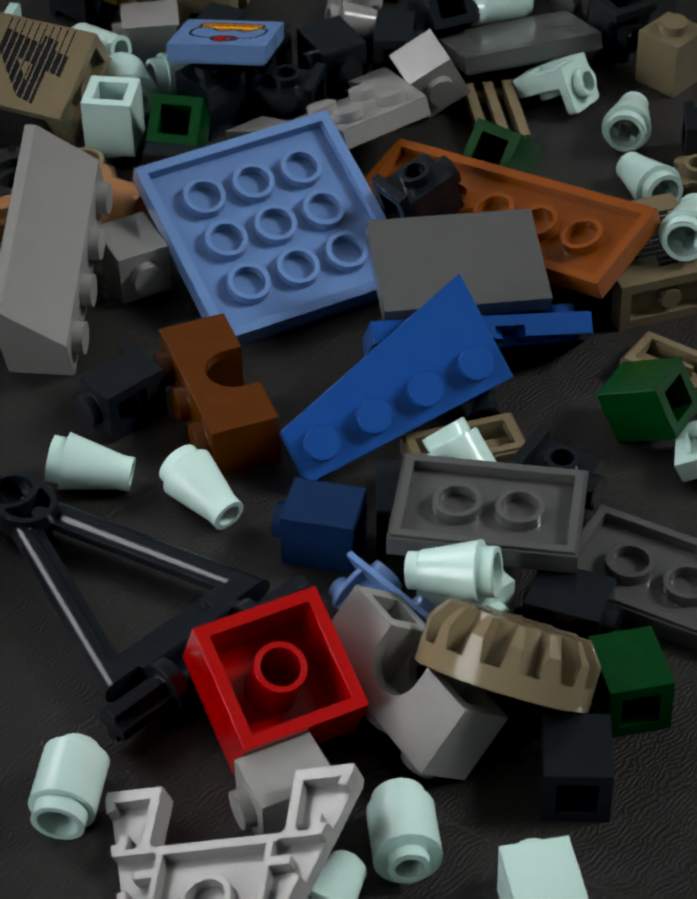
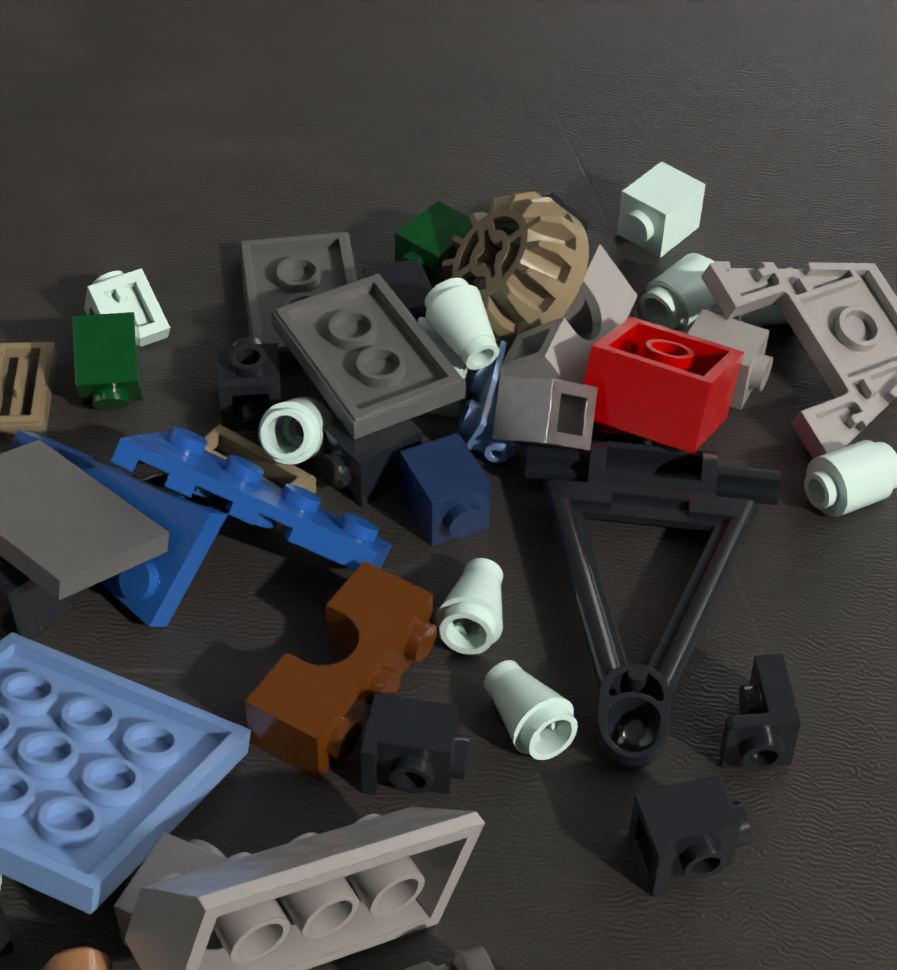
camera: 130 degrees left, 5 degrees up
(304, 562) = (545, 412): none -> flat silver brick

